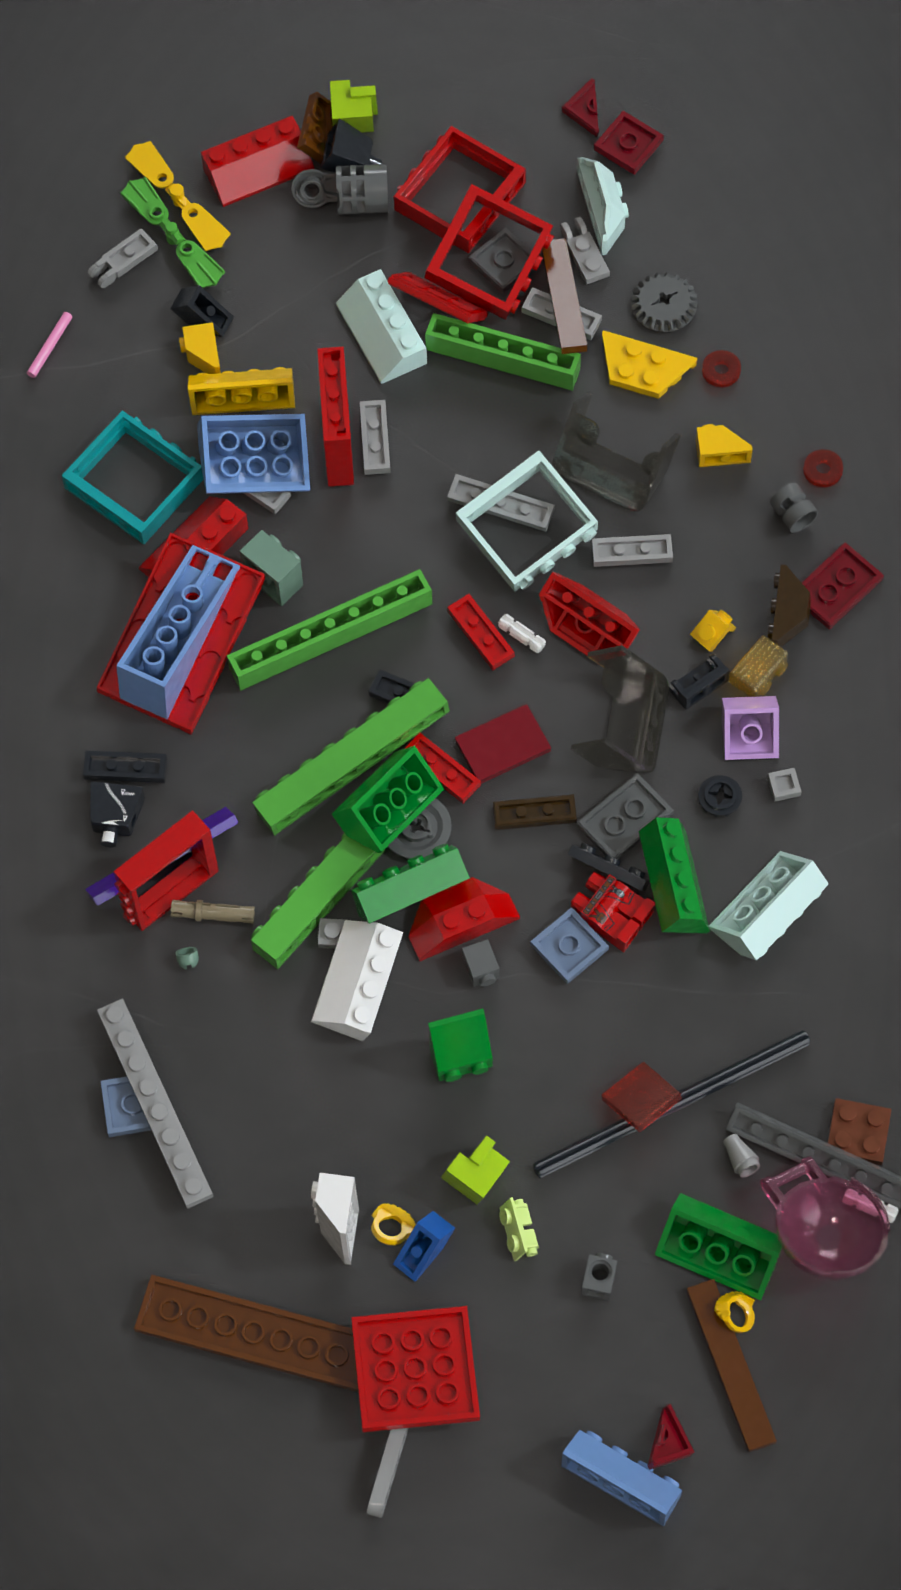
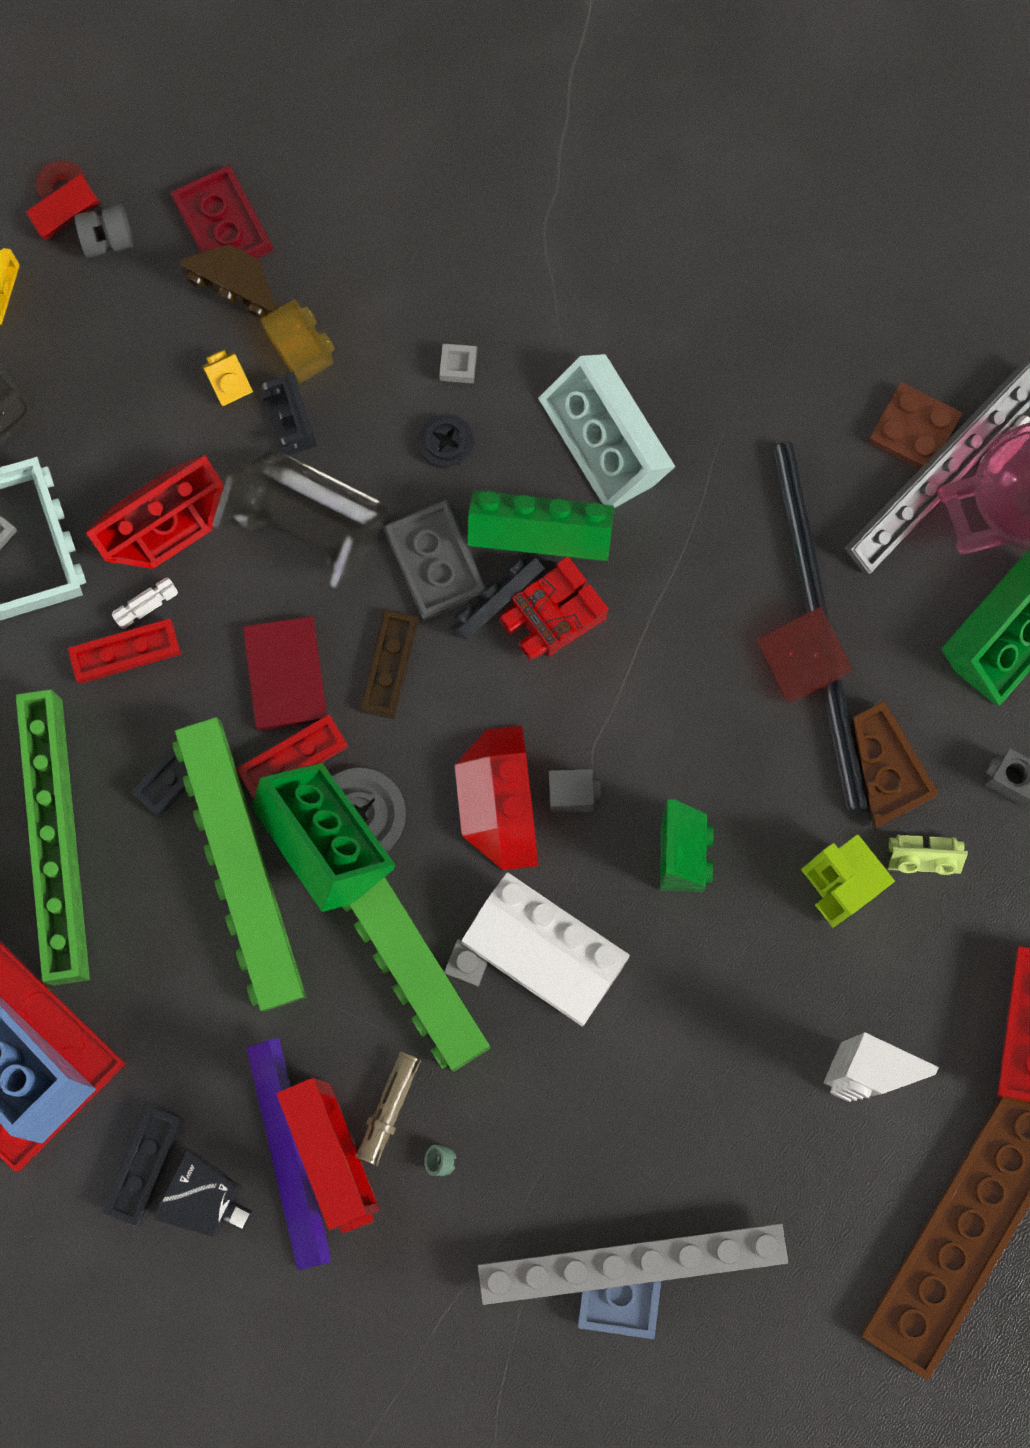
camera: 70 degrees left, 10 degrees up
(388, 1211) = (858, 1008): yellow piece -> none
(409, 883) = (449, 842): slope -> none
(423, 1245) = (918, 974): blue slope -> none
(569, 945) = (581, 677): sand blue plate -> none
(577, 1184) = (889, 766): none -> reddish brown wing
(632, 550) = (84, 436): light grey plate -> none
(741, 1156) = (910, 566): light grey cone -> none
(750, 727) = (371, 375): lavender slope -> none
(803, 473) = (60, 207): none -> red slope

